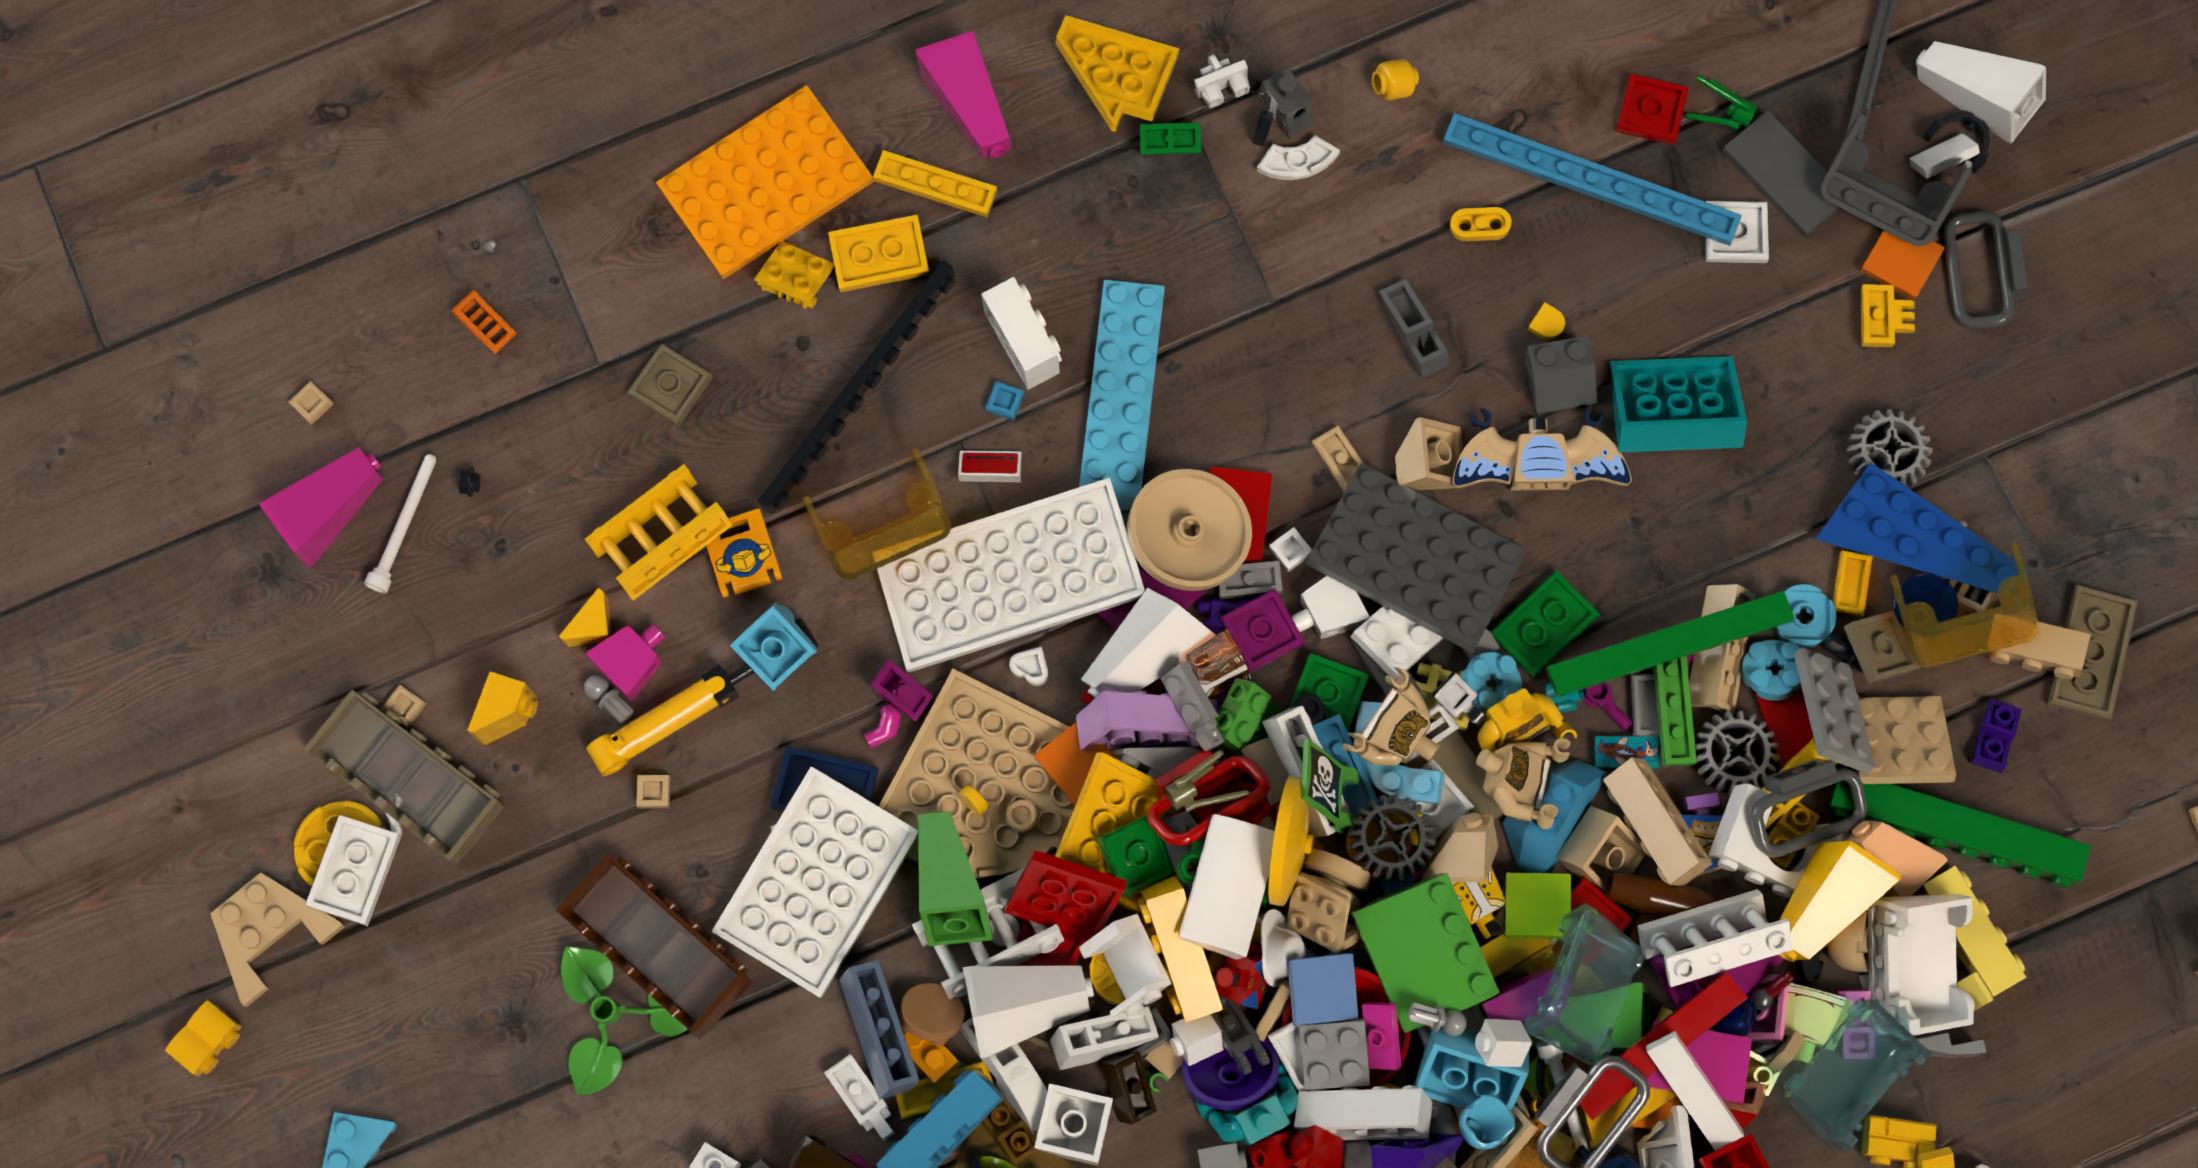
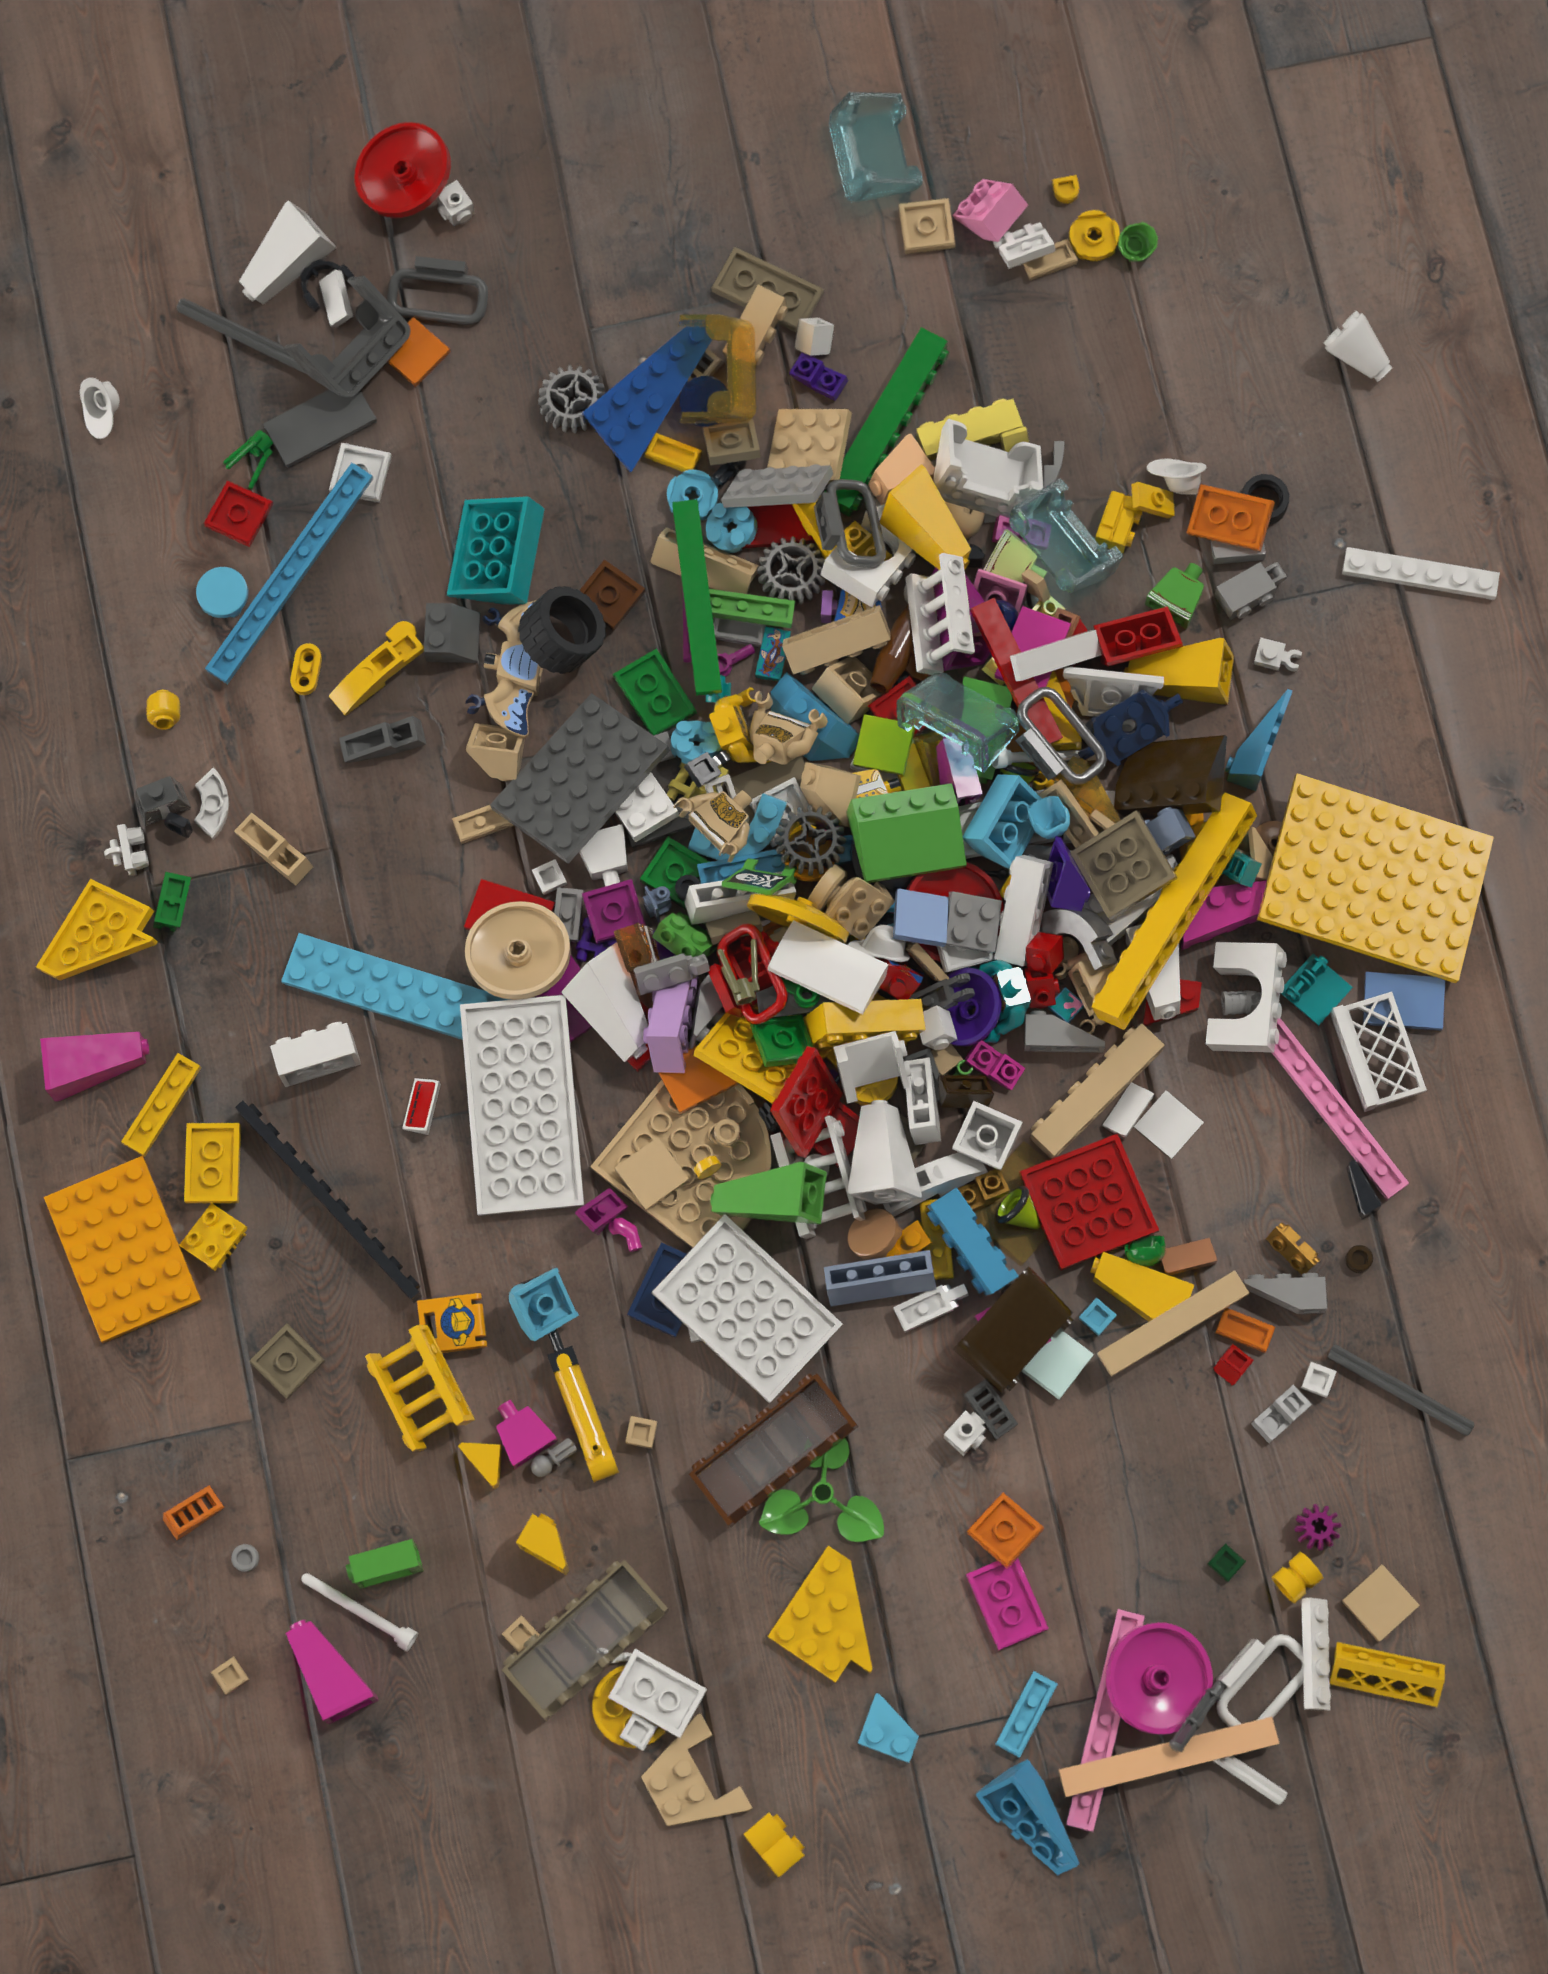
camera: 80 degrees left, 0 degrees up
(307, 858) = (638, 1731): none -> white tile
(442, 389) = (245, 1558): none -> light grey tile
(451, 537) = (384, 1564): none -> bright green window
(469, 482) = (335, 1546): black plate -> none
(472, 1047) = (825, 1619): none -> yellow wing
(888, 543) = (470, 1191): clear yellow windscreen -> none
(955, 739) = (651, 1173): none -> tan tile
(1005, 400) = (367, 1083): dark azure tile -> none
(1030, 665) = (600, 1104): white tile -> none
(1170, 1119) = (994, 1065): none -> dark pink slope
(1257, 237) = (274, 849): none -> tan slope
(1282, 676) = (657, 902): none -> sand blue hinge
(1382, 1035) = (964, 881): dark pink plate -> none
(1451, 1022) = (963, 832): light grey axle -> none
(1494, 298) = (375, 670): none -> yellow slope
(1503, 1043) = (992, 788): white brick -> none
(1551, 112) = (222, 592): none -> medium azure tile
(1616, 514) = (546, 645): none -> black tyre
(1653, 545) = (612, 593): none -> reddish brown plate
(1763, 997) = (990, 589): piece -> none
(1883, 316) = (459, 377): yellow hinge -> none
(2046, 719) = (814, 336): none -> white panel
(2101, 262) = (455, 204): none -> white brick
(2126, 192) = (402, 170): none -> red dish

